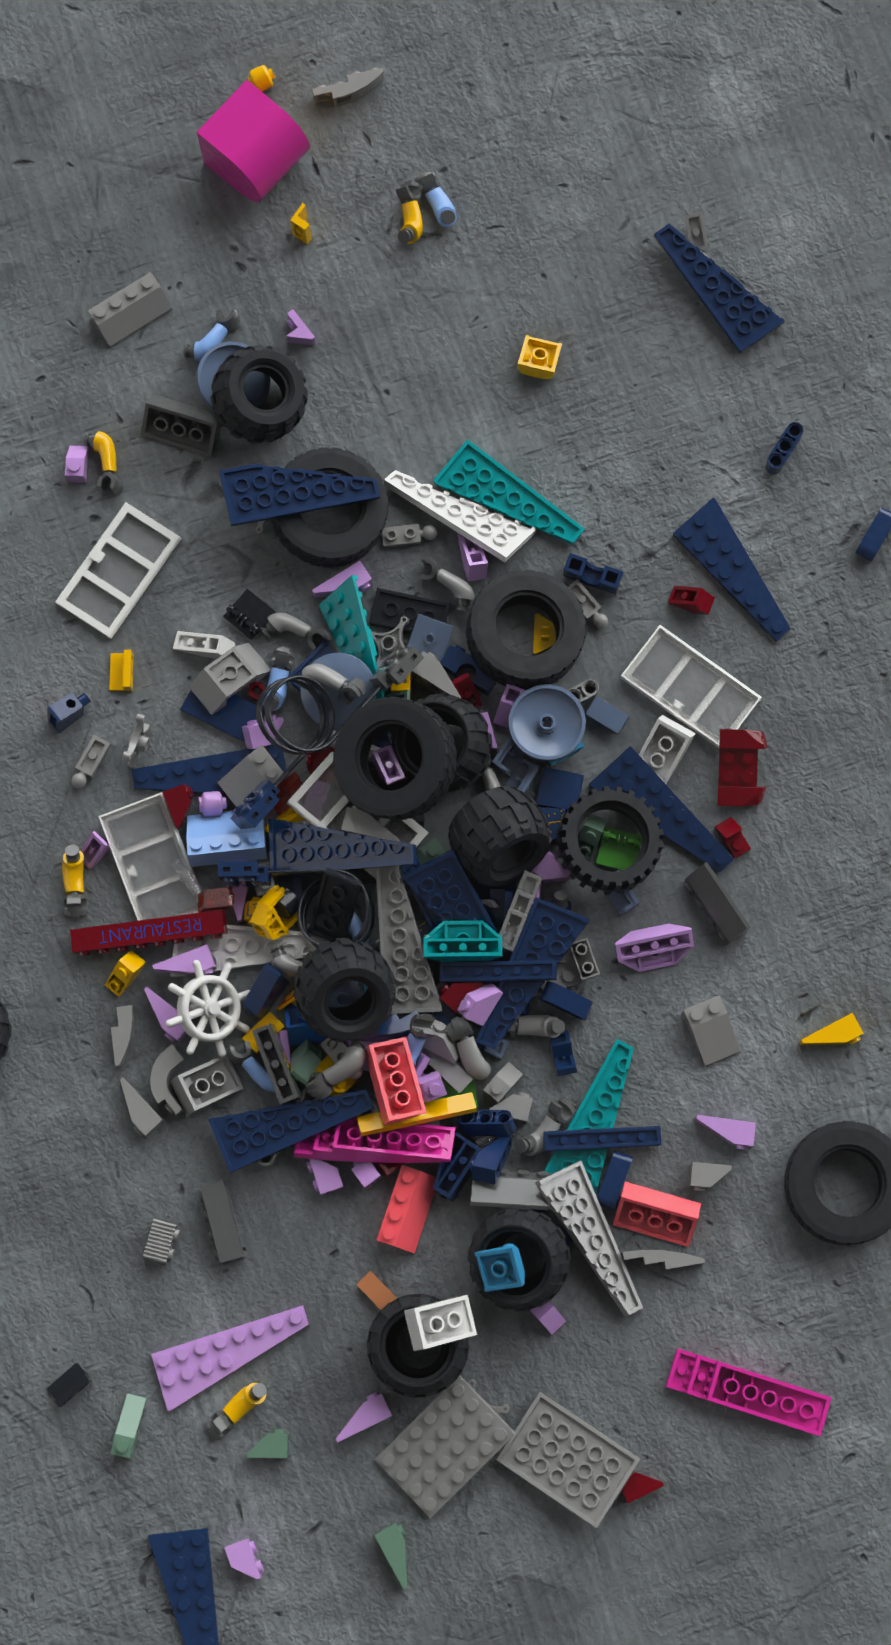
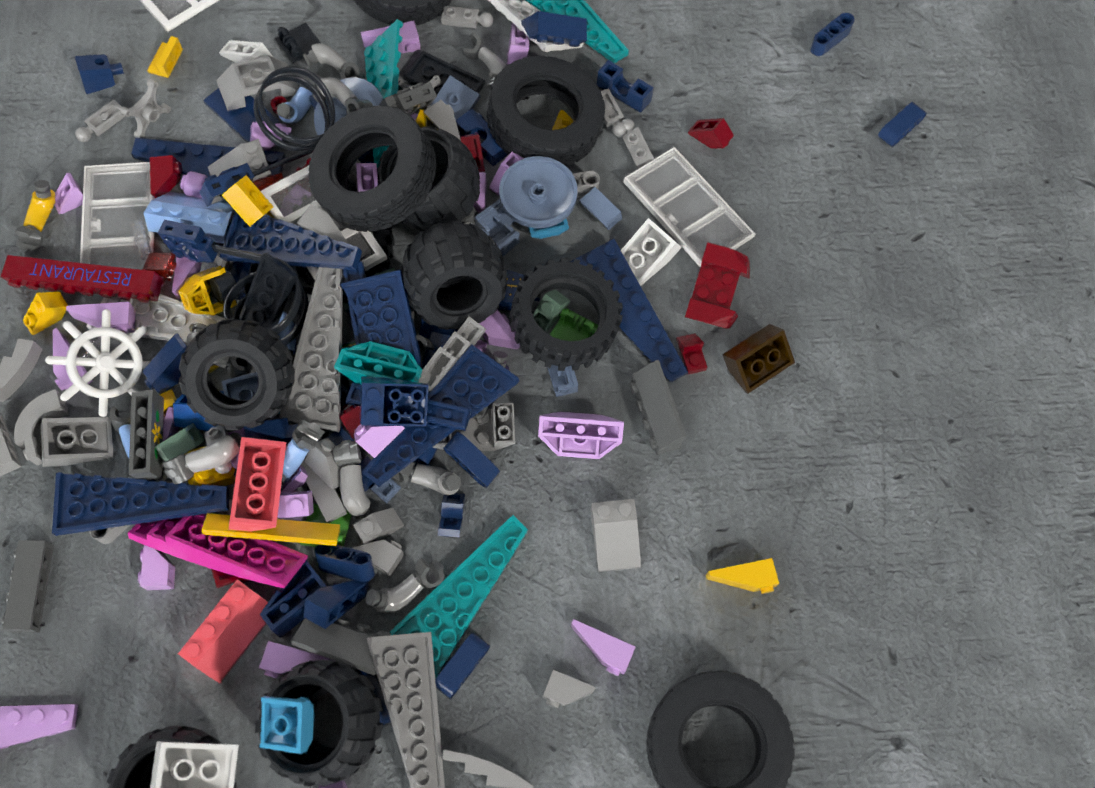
camera: 10 degrees right, 10 degrees down
(286, 819) = (247, 200): none -> yellow panel
(366, 1173) = (198, 580): lavender slope -> none
(376, 1290) = (159, 710): nougat slope -> none
(467, 1218) = (283, 658): none -> lavender slope
(486, 975) = (393, 402): none -> dark blue slope
(509, 537) = (556, 28): none -> dark blue slope
(559, 788) = (529, 255): dark blue slope -> none
(602, 1138) = (462, 615): dark blue tile -> none
(622, 632) = (636, 144): none -> light grey plate
(657, 1214) = (496, 718): coral slope -> none
(720, 552) = (750, 105): dark blue wing -> none
(796, 825) = (759, 357): none -> dark brown slope

